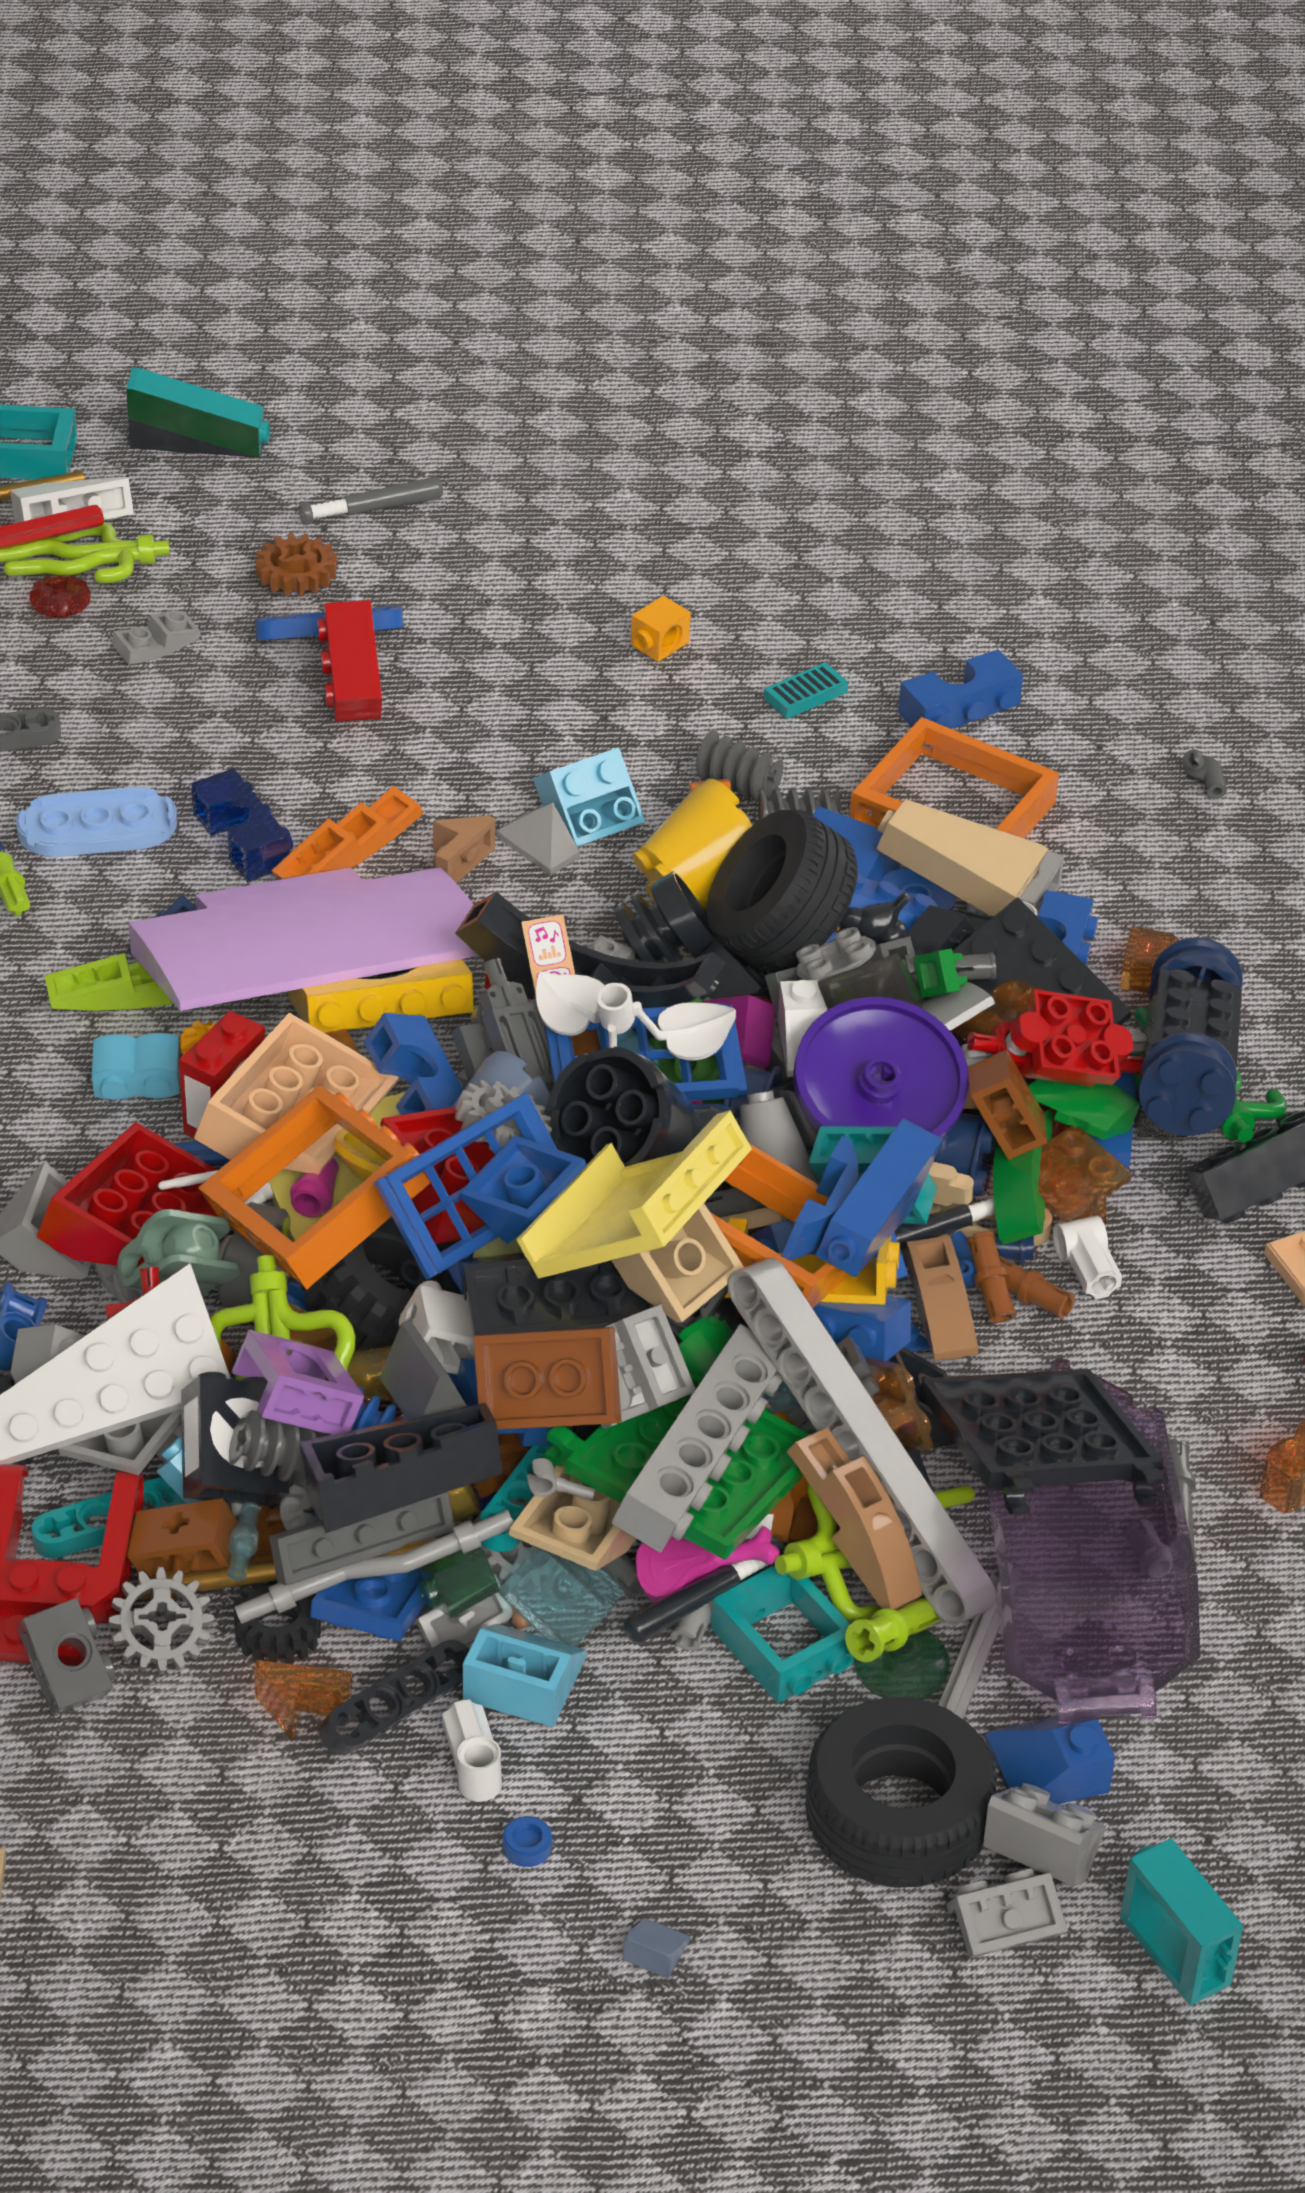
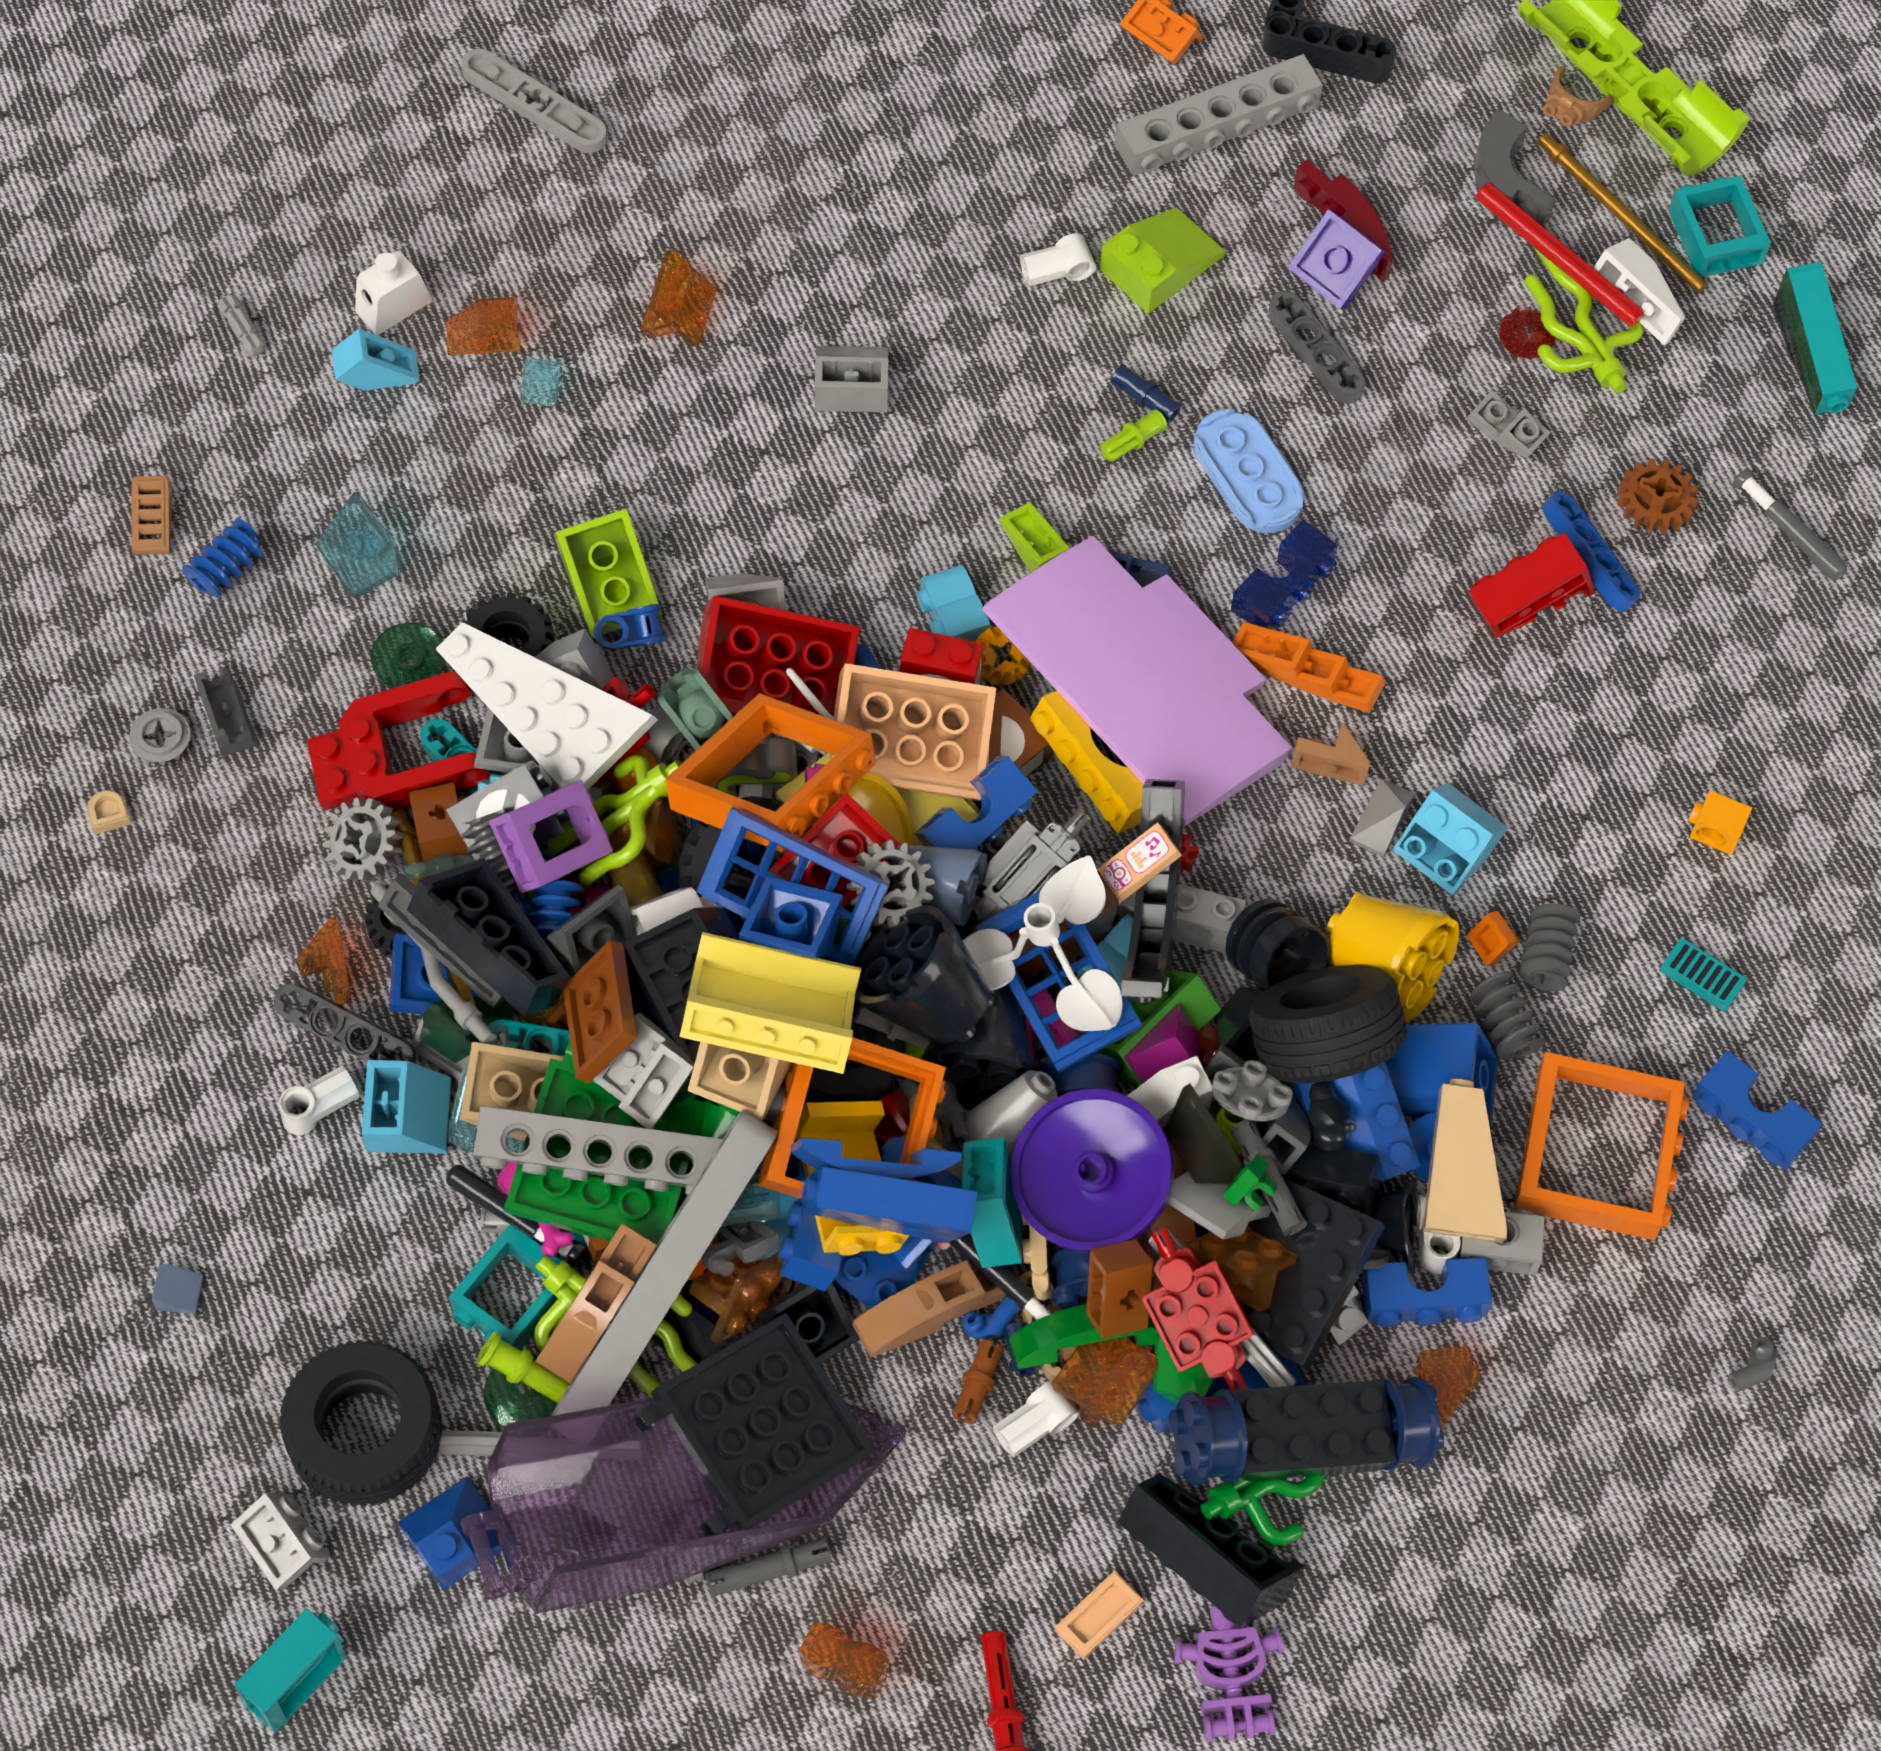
camera: 70 degrees right, 20 degrees up
(66, 1685) = (280, 794): dark grey brick -> none
(527, 1841) = (250, 1169): blue tile -> none
(546, 1482) = (530, 1049): light grey hand -> none
(991, 1277) = (966, 1343): dark orange pin -> none
(1042, 1833) = (347, 1541): light grey slope -> none

